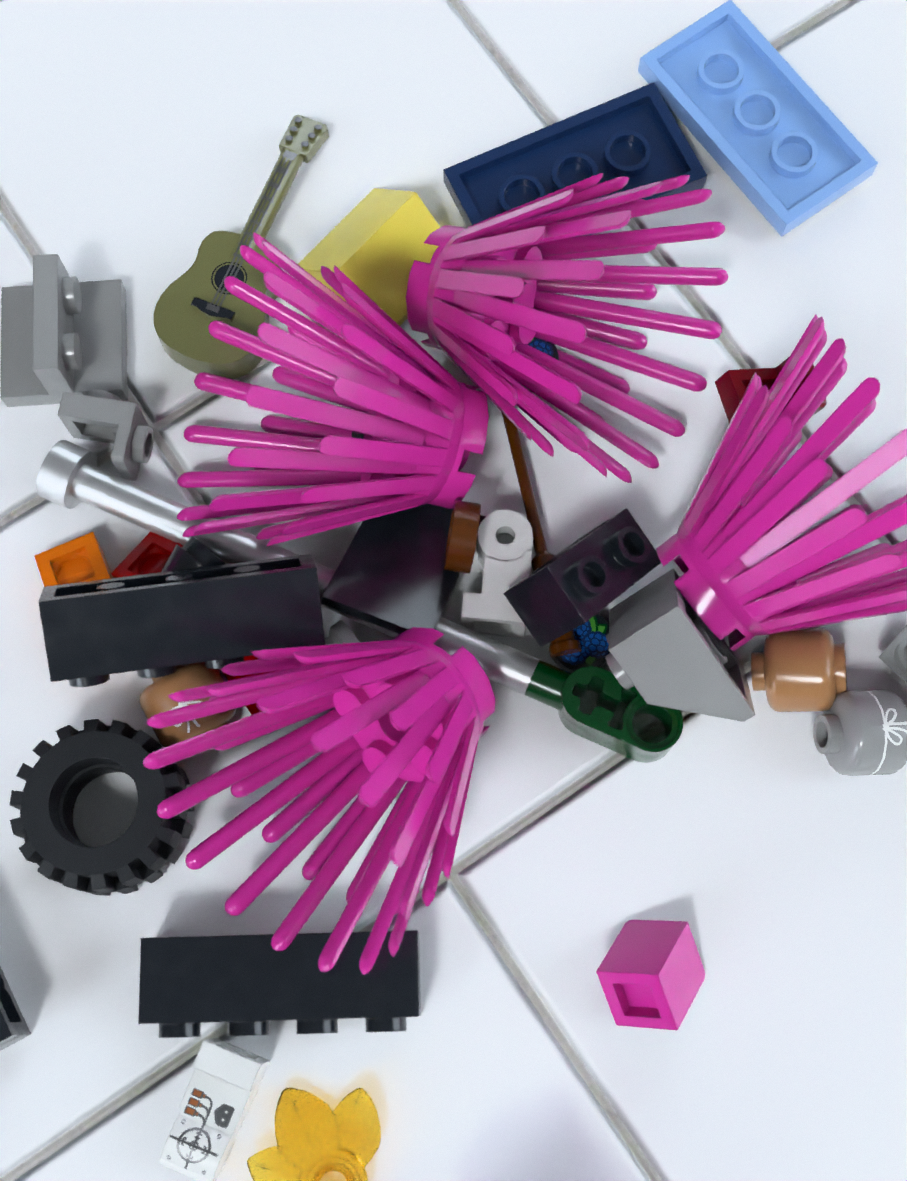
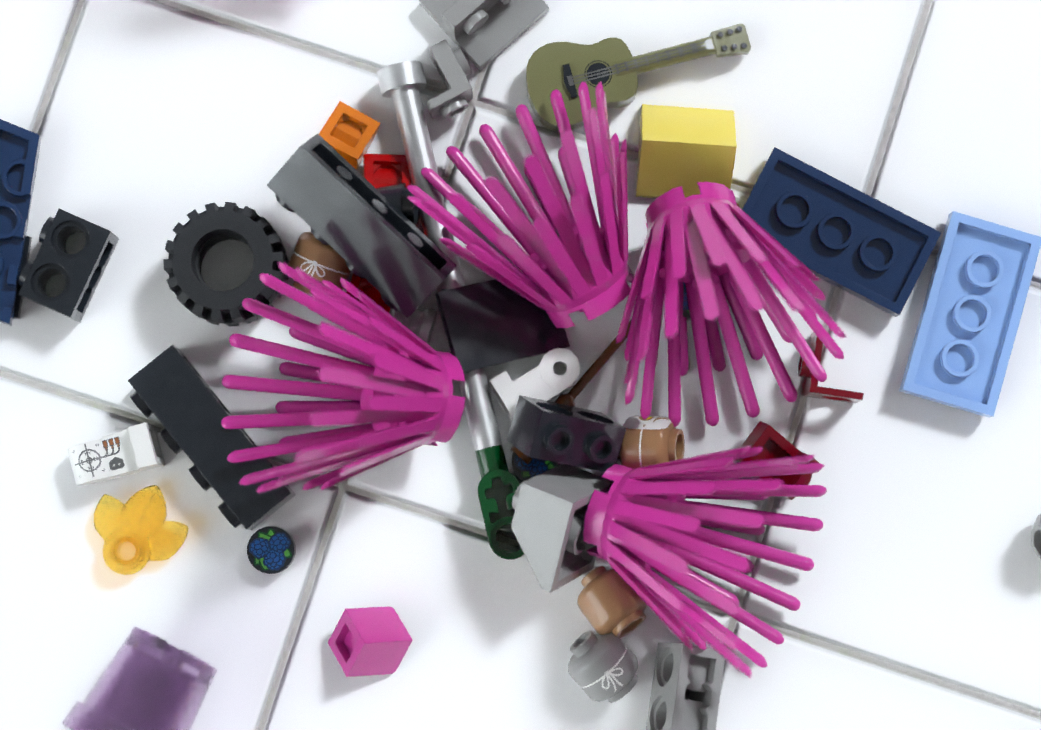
camera: 45 degrees right, 10 degrees up
(461, 1009) = (271, 550): none -> tile
(462, 536) = (536, 344): reddish brown piece -> none
(656, 501) = (650, 442): none -> medium nougat head
(709, 301) = (810, 386): none -> dark red bracket

